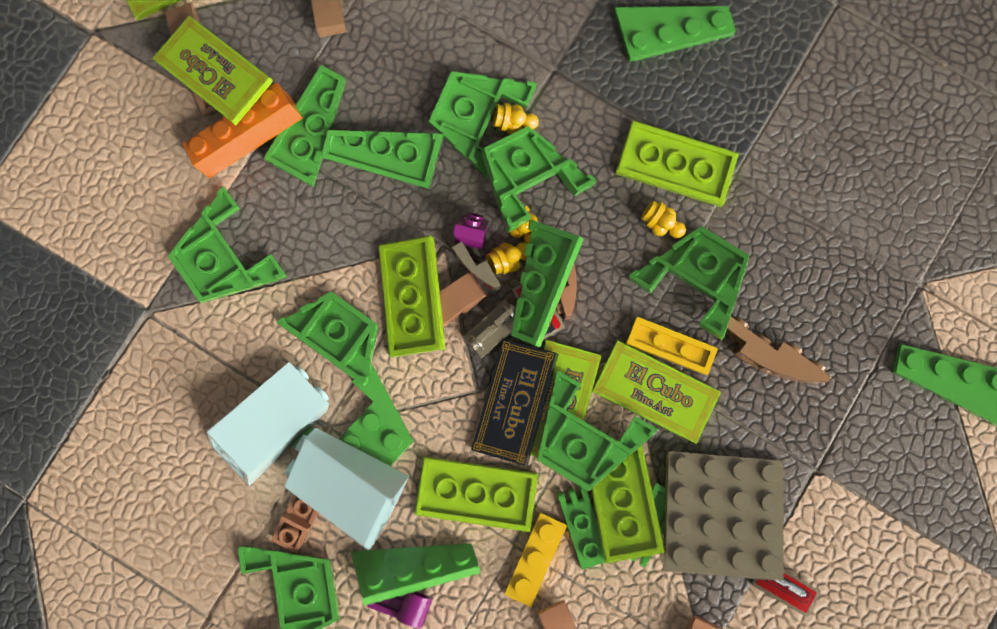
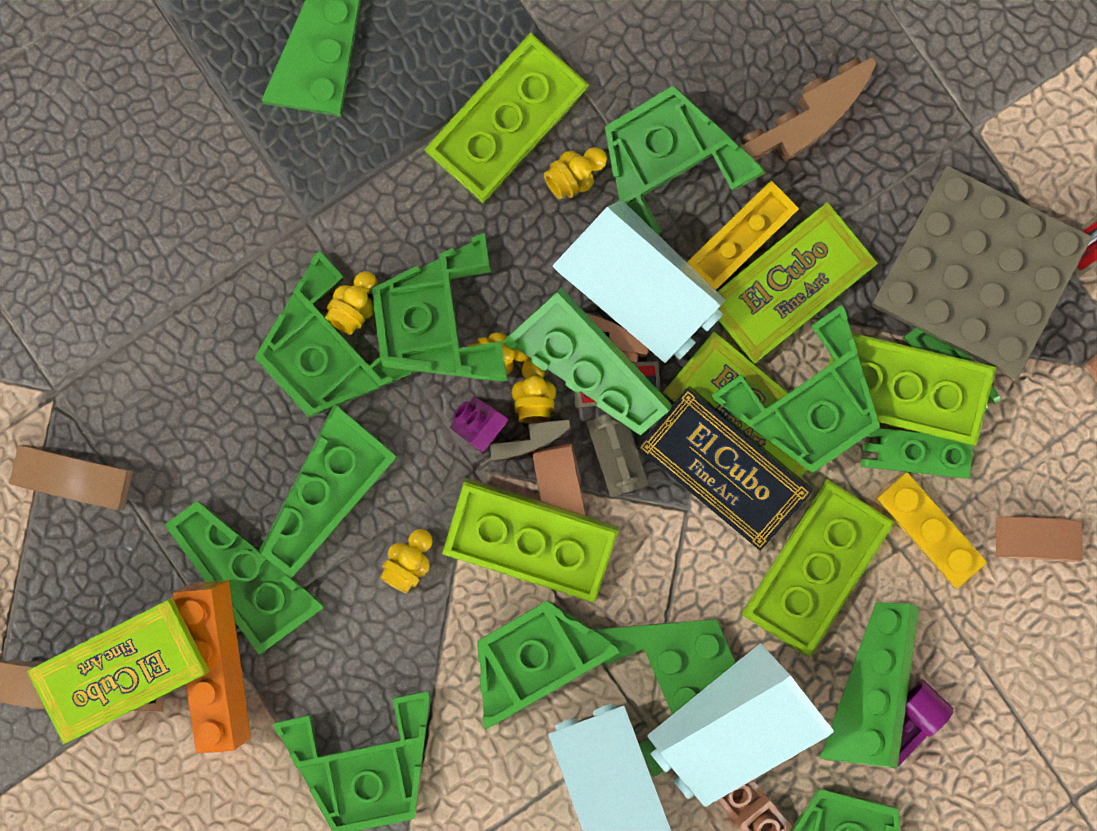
camera: 65 degrees left, 5 degrees up
(364, 225) = (407, 561): none -> yellow piece
(611, 289) = (641, 282): none -> light aqua slope

